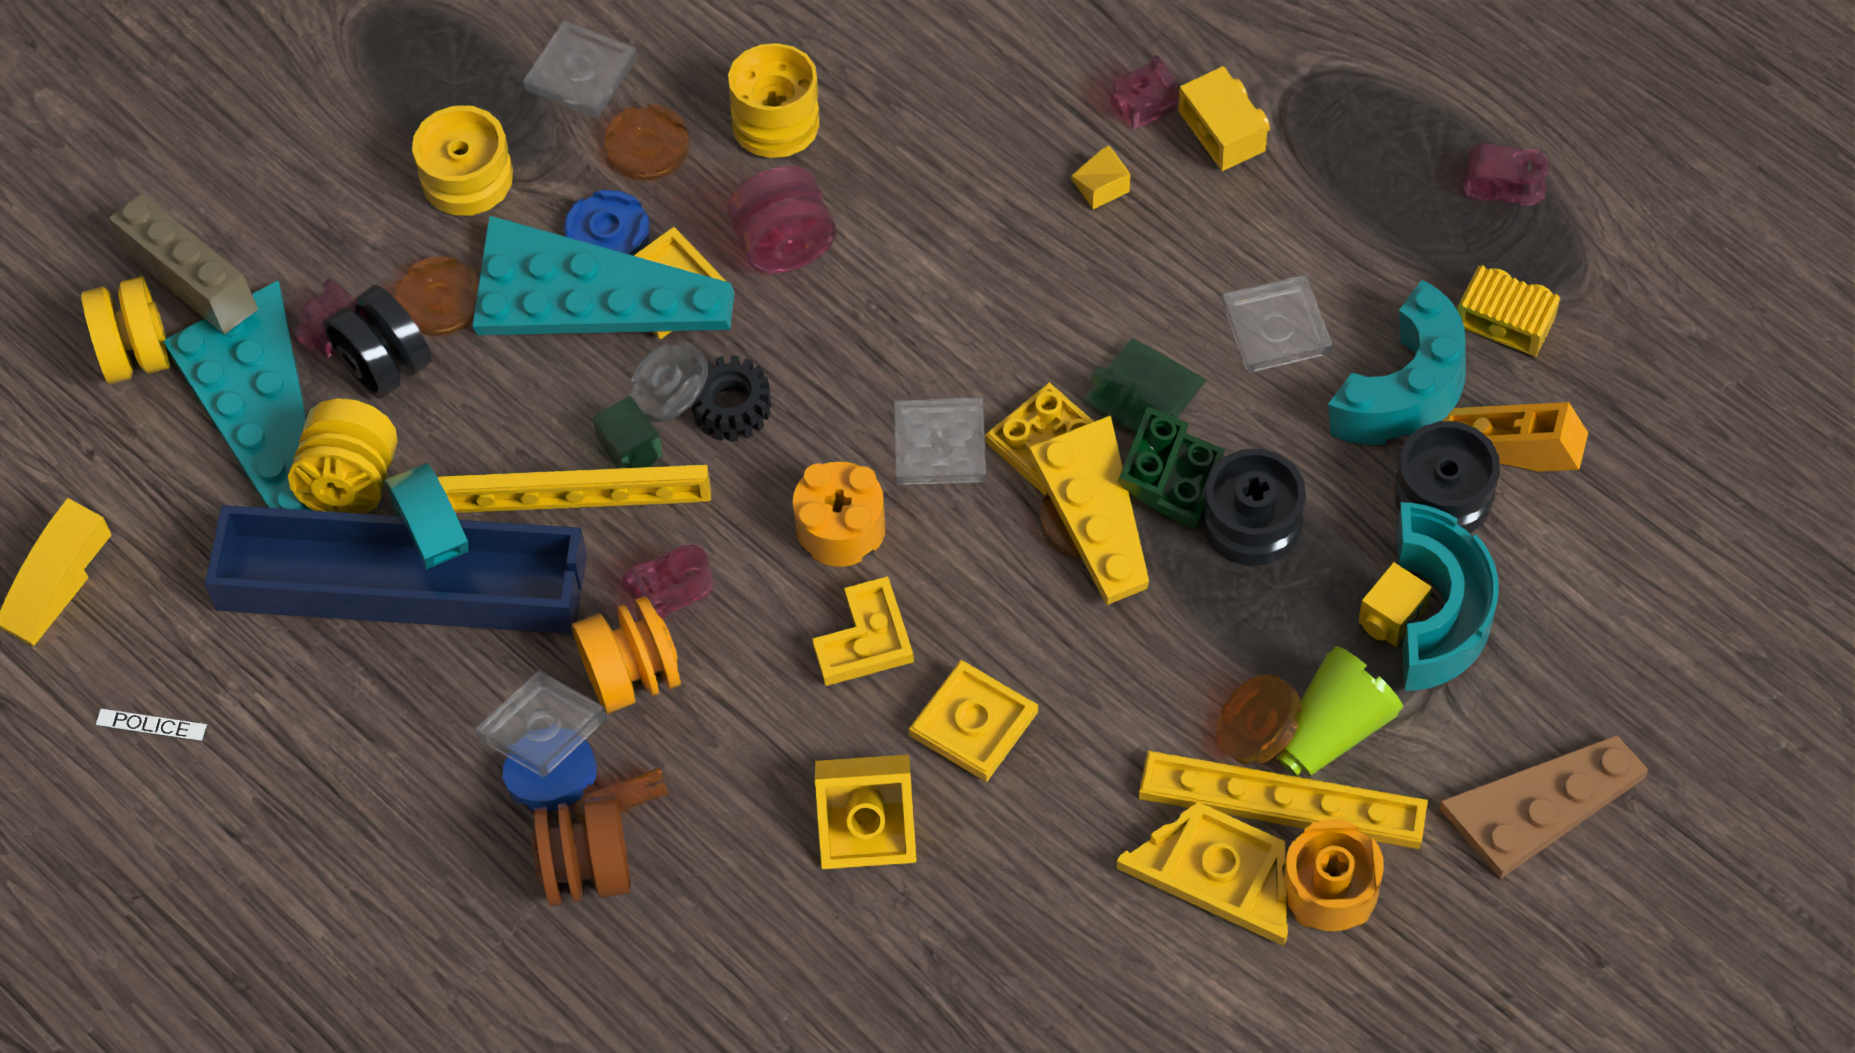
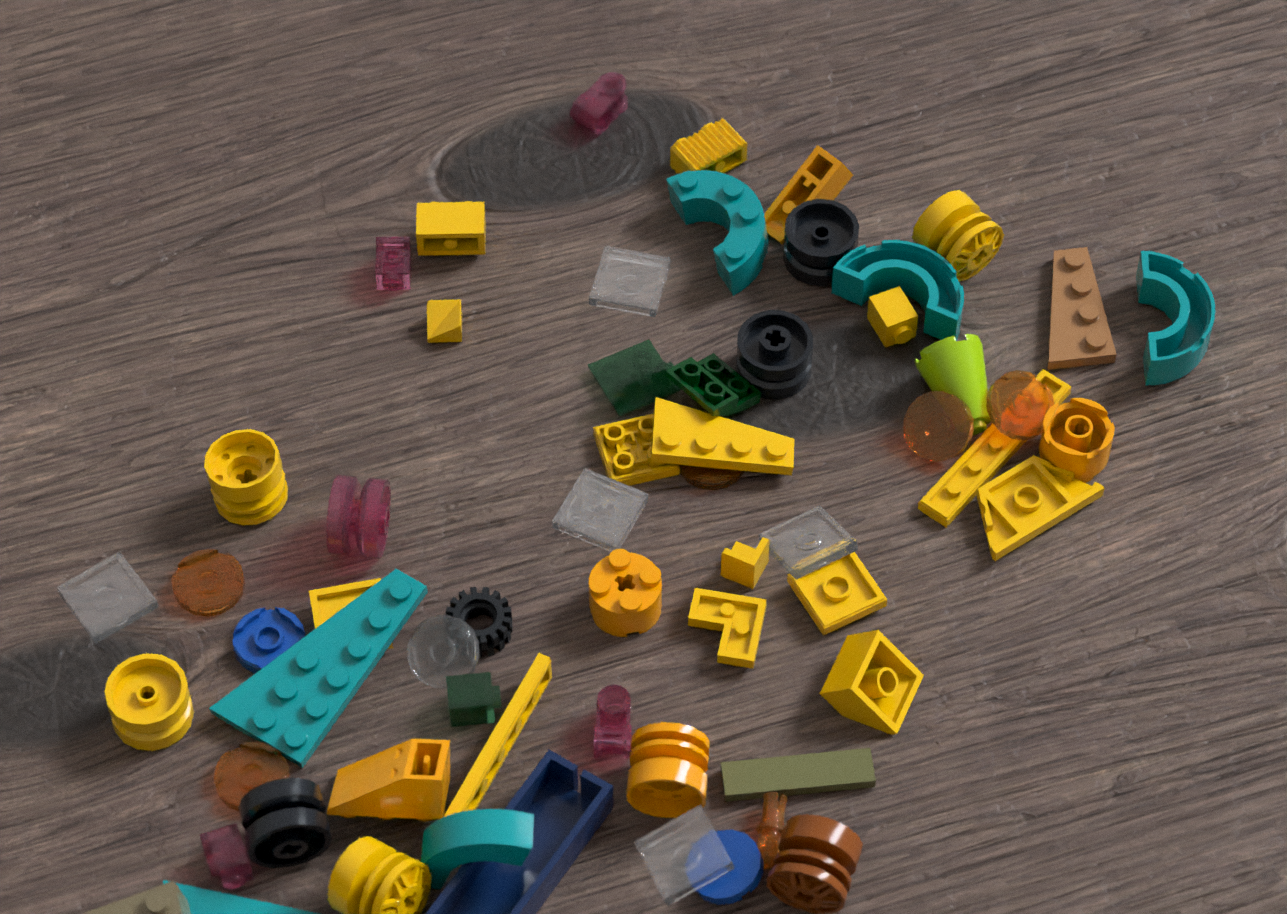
camera: 65 degrees left, 5 degrees down
(480, 419) = (395, 783): none -> light orange slope
(712, 792) = (798, 774): none -> olive tile
(956, 613) = (745, 563): none -> yellow panel
(1017, 660) = (809, 542): none -> clear tile
(1343, 786) = (1018, 404): none -> clear orange tile
(1549, 614) = (959, 233): none -> yellow wheel
(1590, 935) = (1188, 304): none -> teal brick

